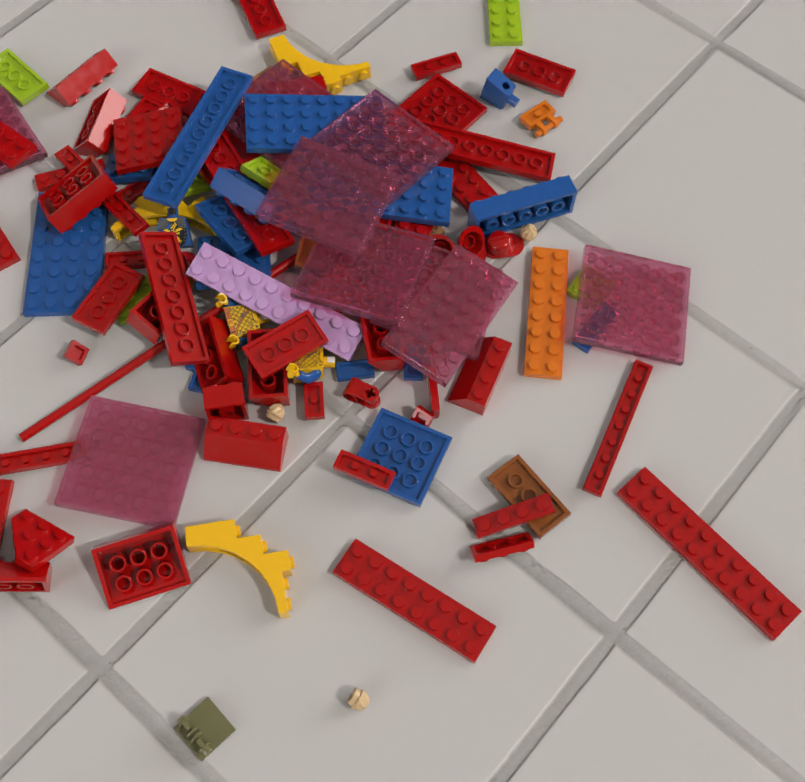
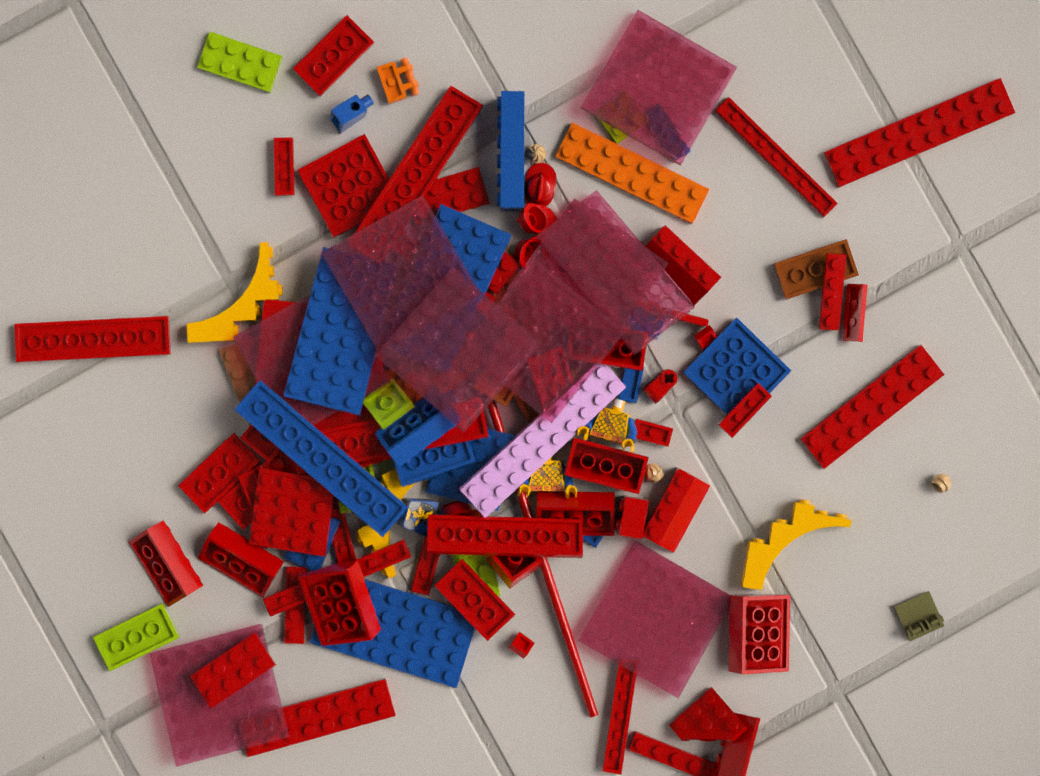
camera: 70 degrees left, 25 degrees up
(285, 345) = (599, 444): red plate -> none

